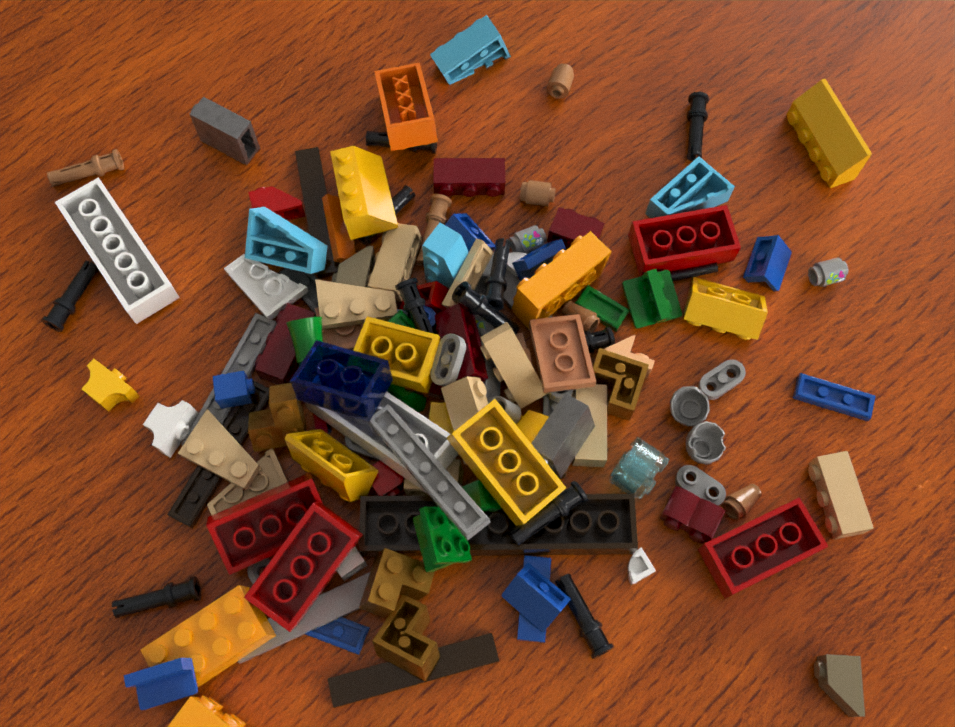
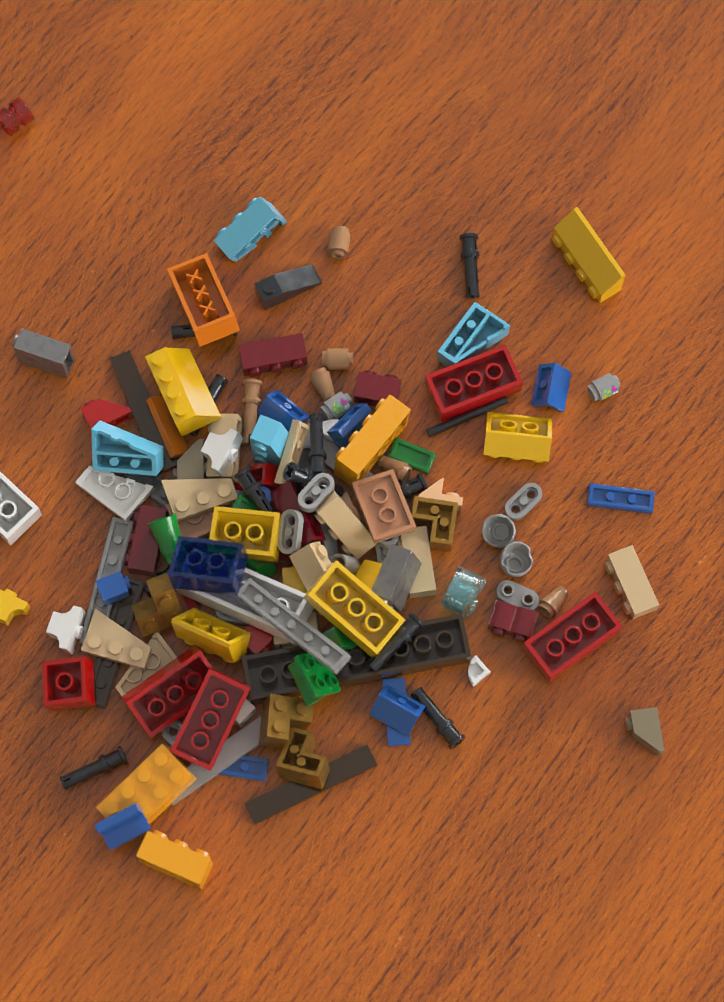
camera: 10 degrees left, 5 degrees up
(151, 489) = (68, 683): none -> red brick
(390, 258) = (222, 450): none -> white brick
(484, 321) = (314, 493): none -> light grey plate
(495, 112) = (286, 285): none -> black slope
(516, 213) = (322, 382): none -> medium nougat cone
(651, 298) = (453, 440): green bracket -> none

